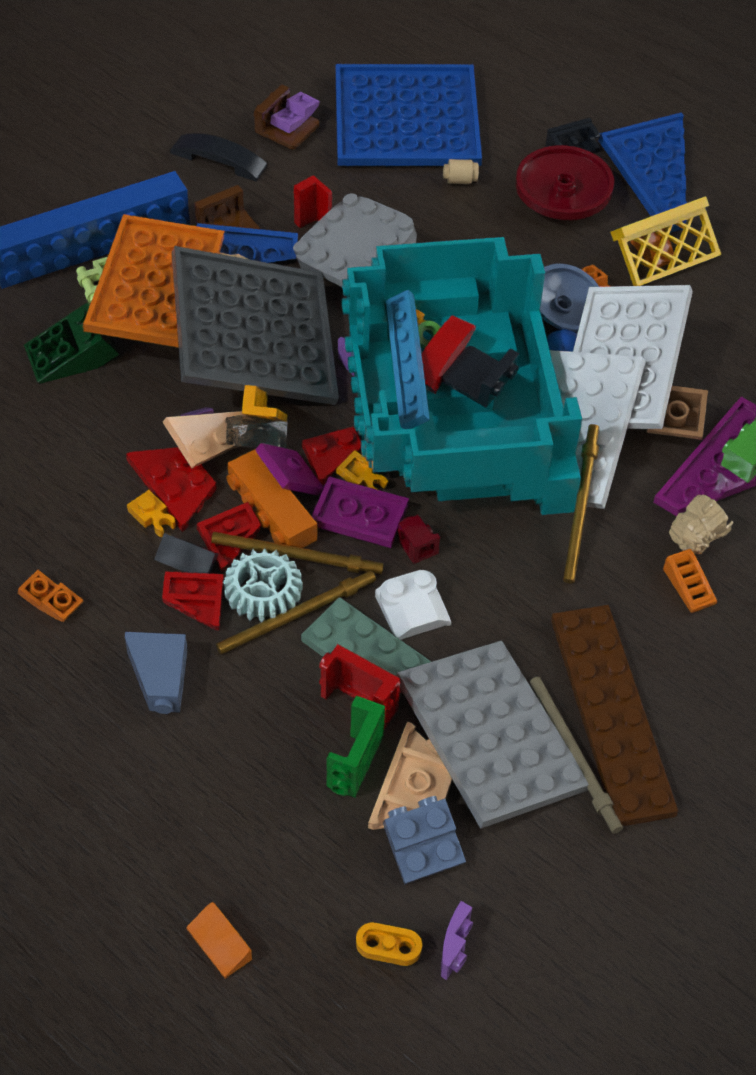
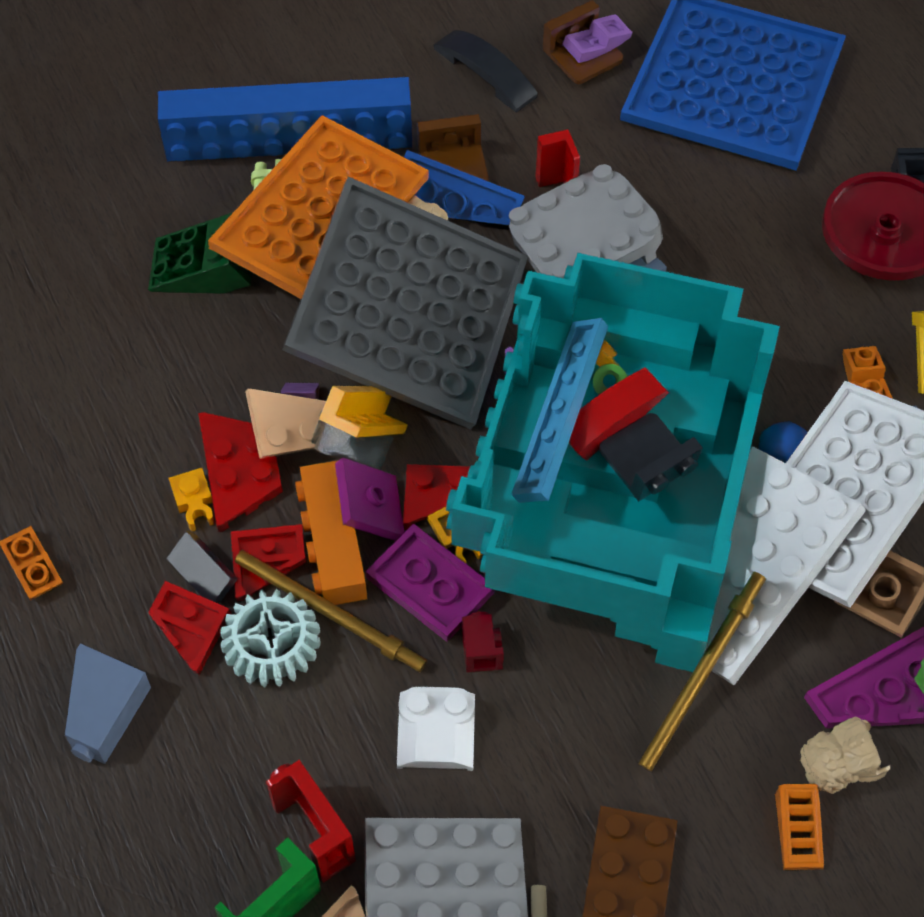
camera: 25 degrees right, 5 degrees up
(346, 588) = (369, 676): pearl gold bar -> none
(361, 635) = (350, 763): sand green plate -> none
(461, 171) = (764, 172): tan brick -> none
(564, 295) = (811, 363): sand blue dish -> none

